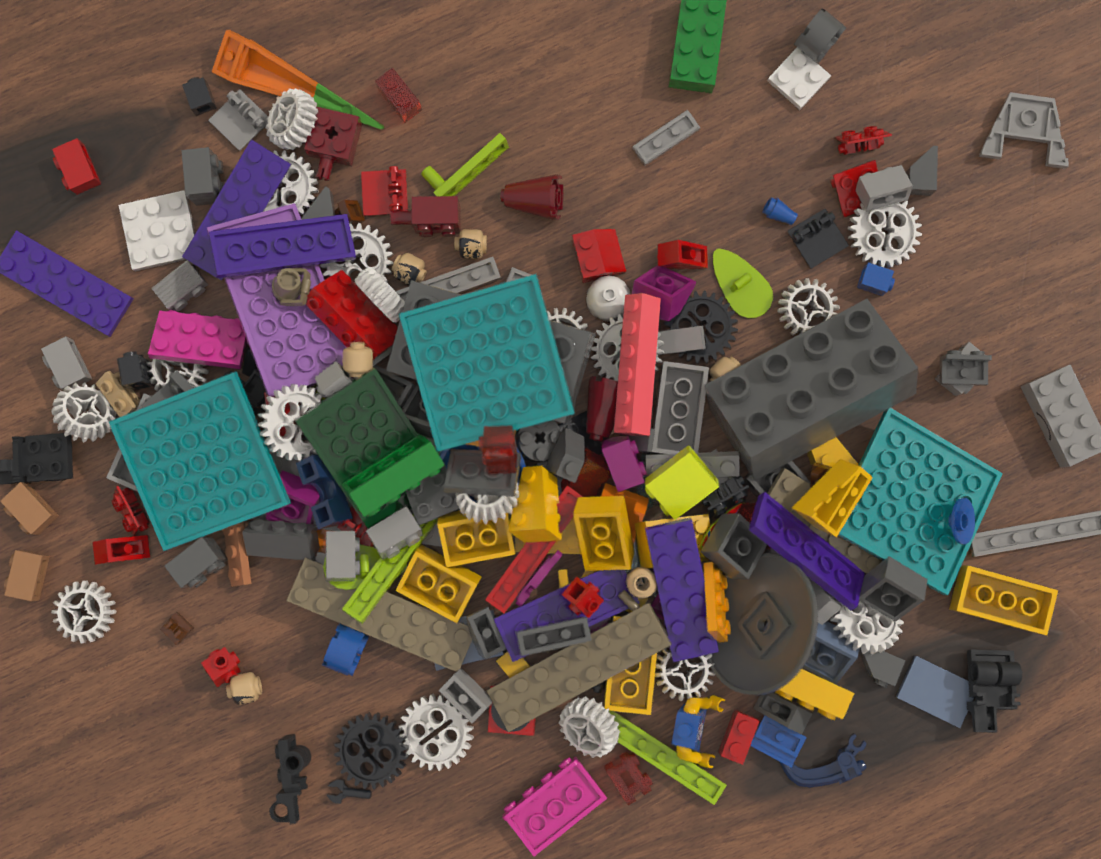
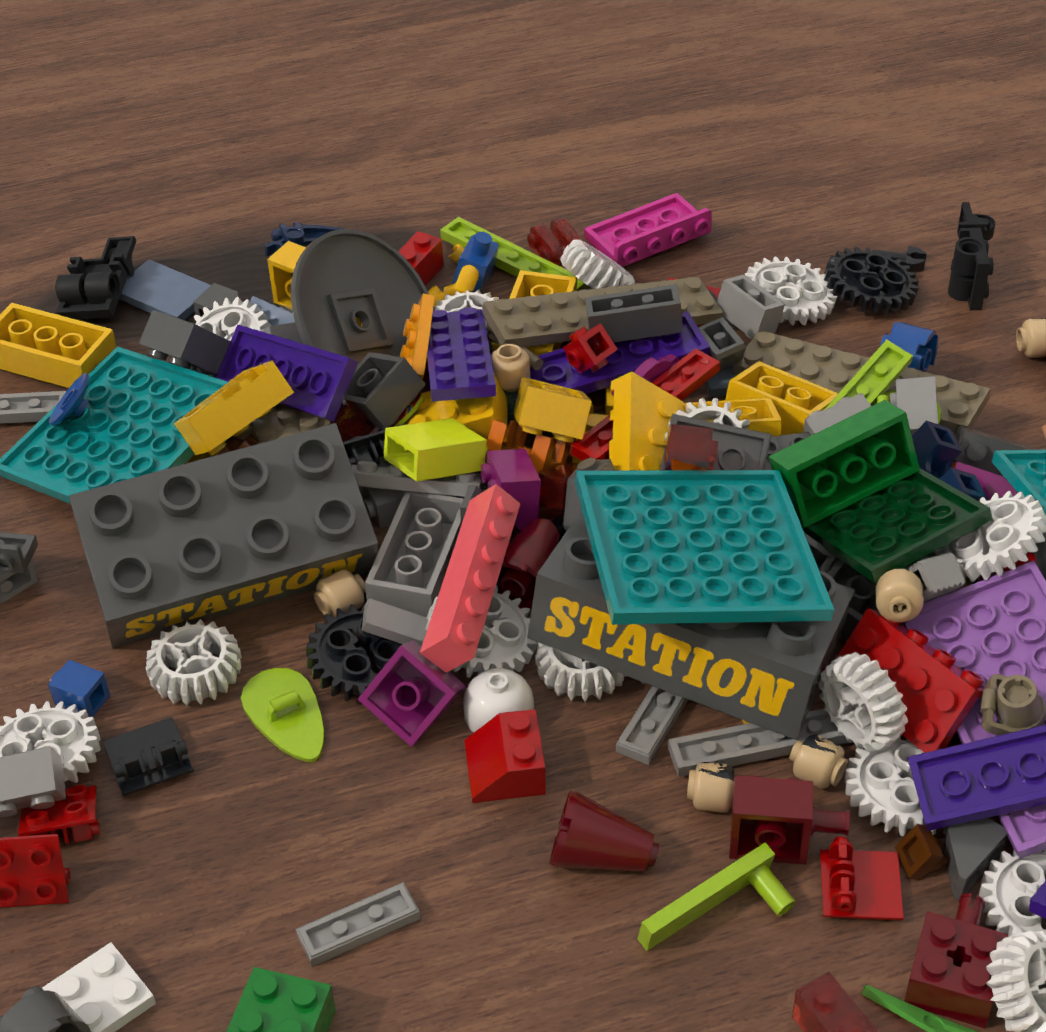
camera: 170 degrees left, 40 degrees down
(682, 255) = (371, 743): red slope -> none
(777, 210) = (200, 793): blue cone -> none

